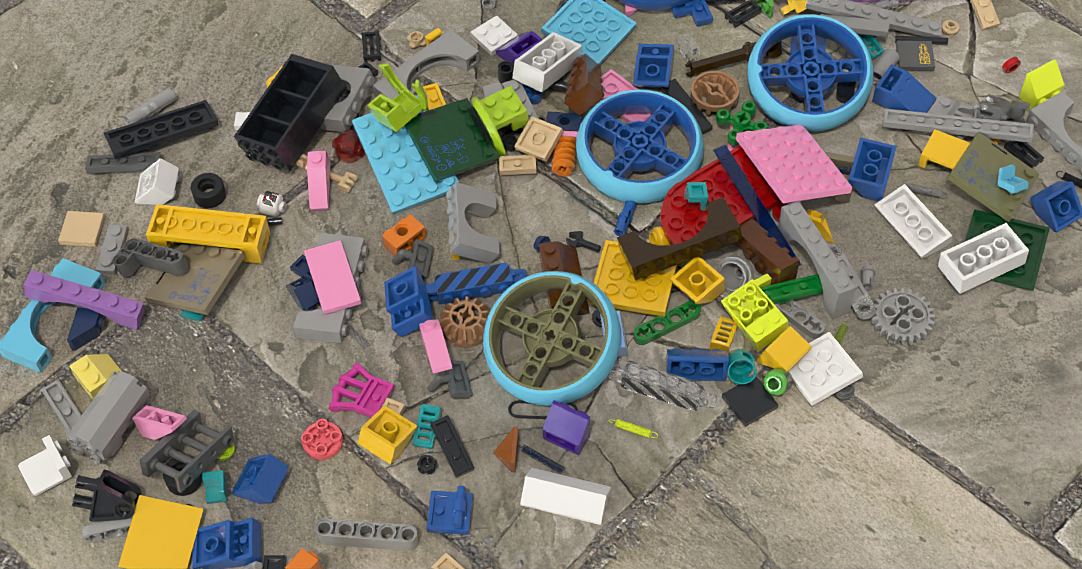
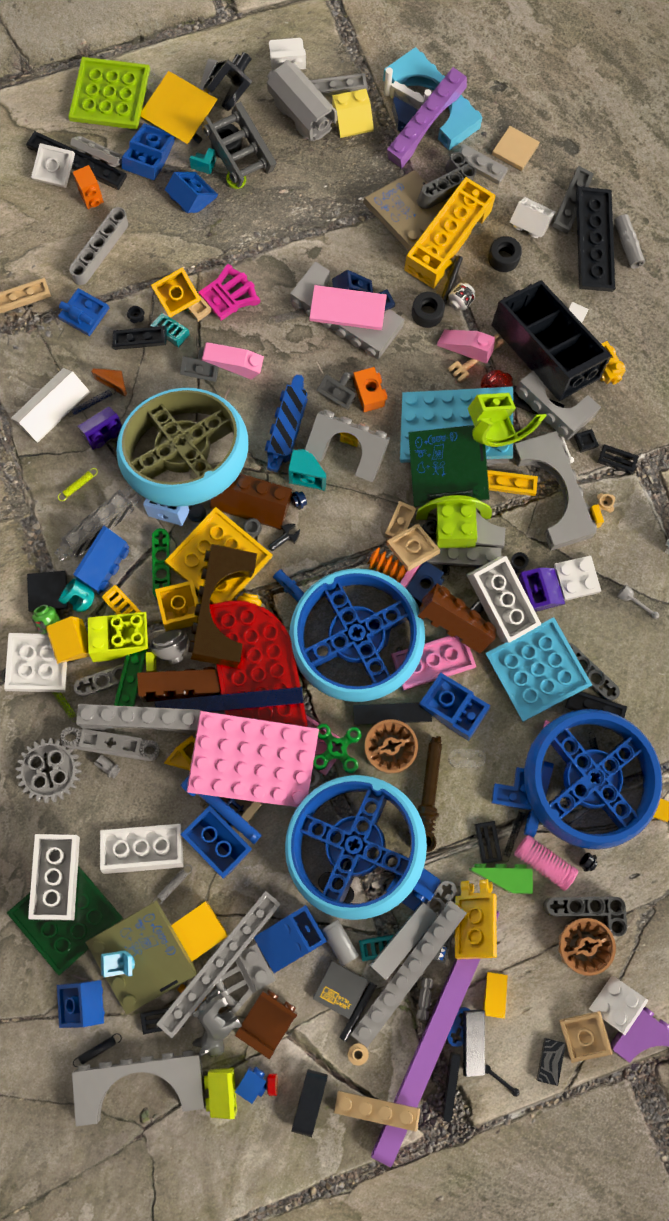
camera: 110 degrees right, 20 degrees up
(60, 330) = (402, 92): none -> white plate
(157, 422) = (274, 132): bright pink slope -> none
(294, 216) = (428, 299): none -> black tyre
(322, 440) = (203, 250): coral tile -> none
(407, 301) = (293, 359): blue slope -> none
(467, 332) = (254, 413): medium nougat gear -> none
(514, 243) = (306, 471): none -> teal slope
(588, 268) = (252, 527): none -> dark grey plate
(697, 193) = (259, 643): teal panel -> none
(842, 201) = (229, 814): none -> blue piece
(971, 88) = (266, 1023): none -> reddish brown panel
(1005, 39) = (309, 1103): none -> black beam
(1017, 74) = (252, 1084): none -> blue brick

